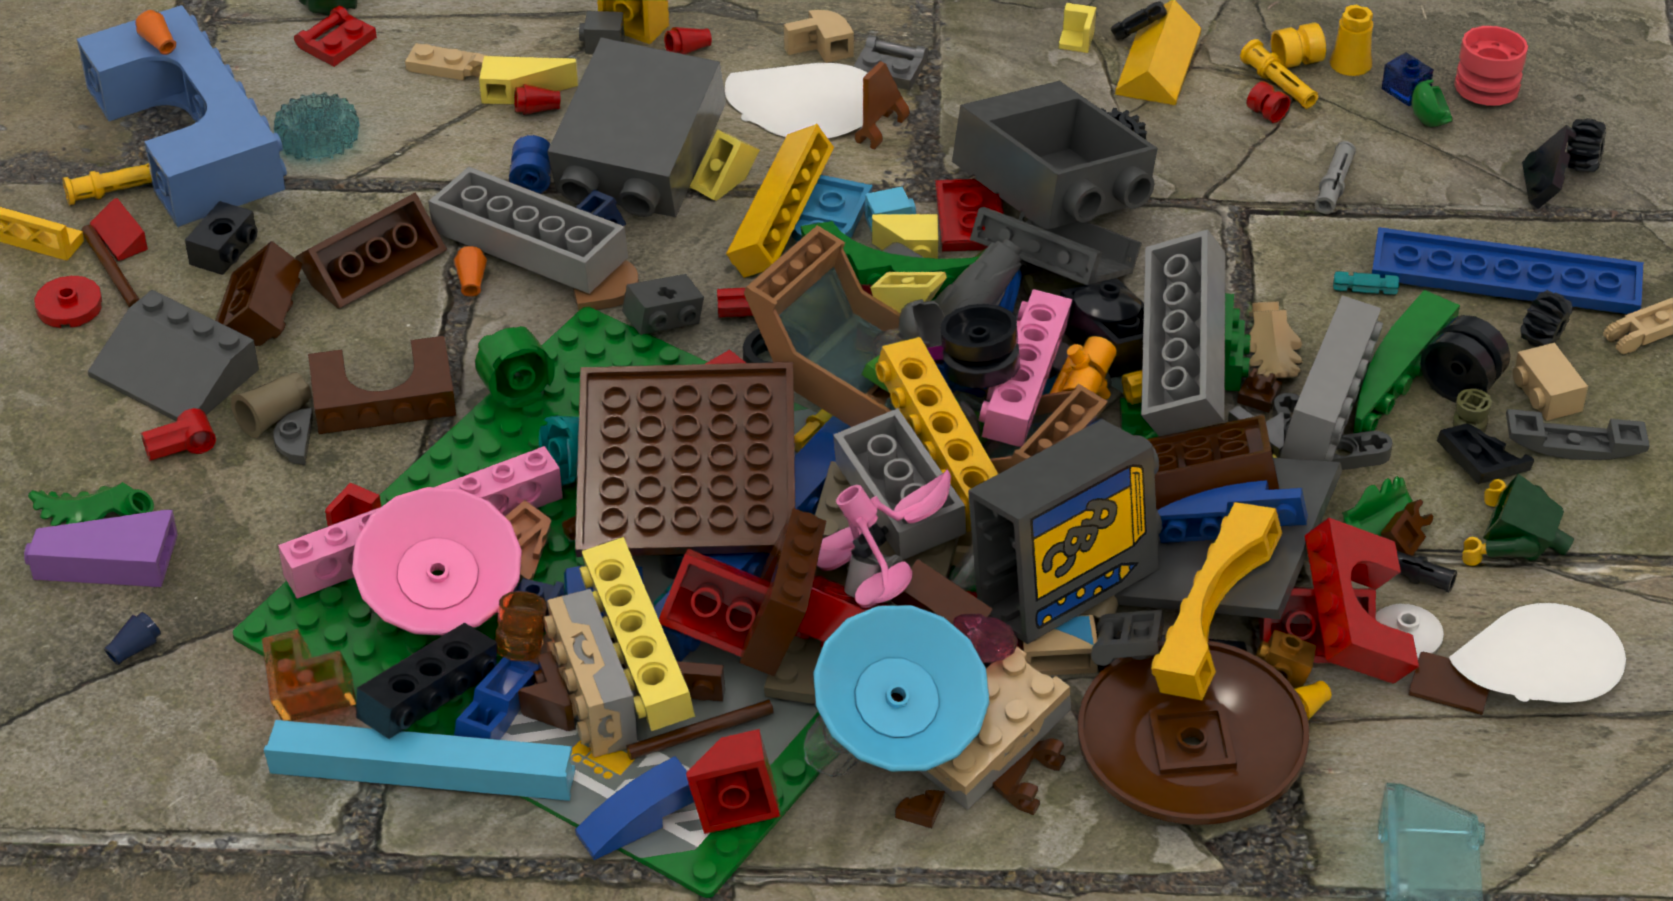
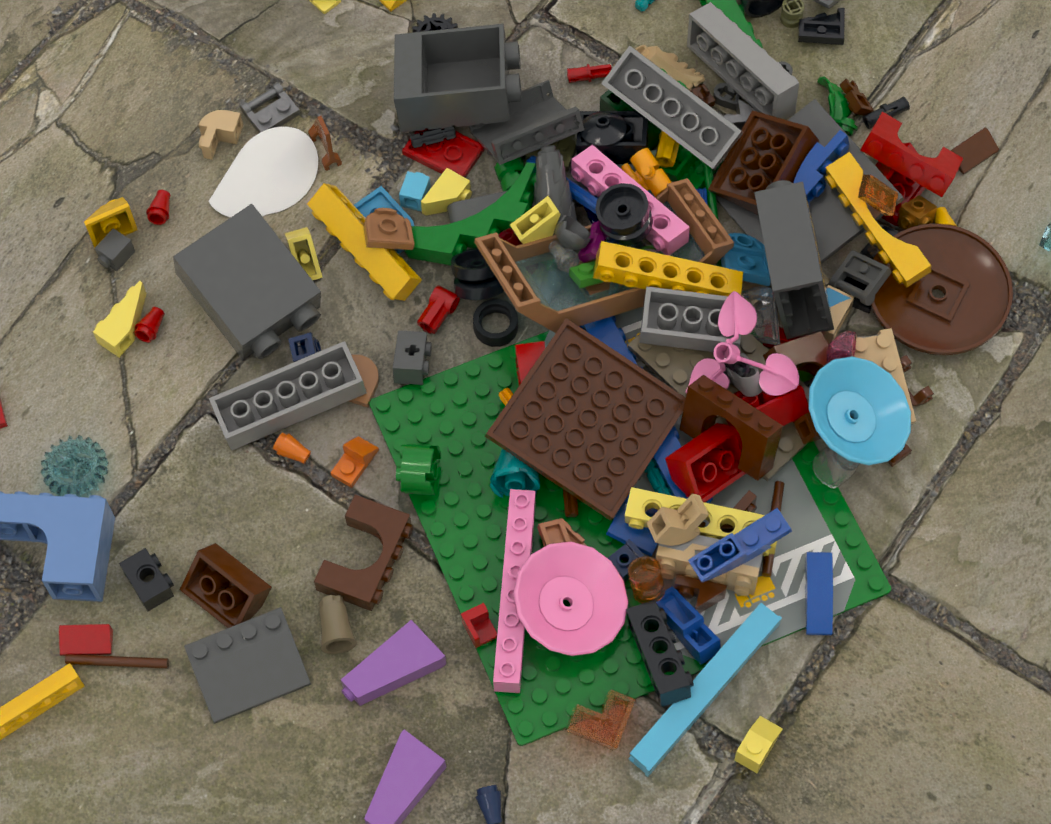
camera: 55 degrees left, 20 degrees up
(68, 301) = (139, 714): red plate -> none
(88, 507) = (351, 775): green plant -> none
(97, 184) = (27, 630): yellow pin -> none
(188, 433) = (325, 687): red piece -> none
(256, 473) = (392, 665): none -> medium lavender slope
(293, 435) = (367, 626): dark grey plate -> none
(372, 252) = (229, 496): reddish brown slope -> none
(382, 848) = (757, 744): none -> light yellow slope
(444, 62) = (64, 356): tan hinge -> none
(487, 324) = (356, 458): none -> orange slope
(530, 163) = (216, 360): blue wheel -> none
(591, 587) = (680, 525): none -> tan brick
(606, 663) = (740, 547): none -> blue slope
(734, 783) = (846, 527): red slope -> none
(802, 199) = (388, 230): none -> medium nougat tile
(972, 190) = (432, 136): none -> black axle
(1243, 570) = (878, 195): none -> clear orange plate
(1416, 621) = (931, 140): white dish -> none
(1520, 525) = (891, 44): dark green torso -> none
(1544, 655) = (984, 97): white sticker -> none

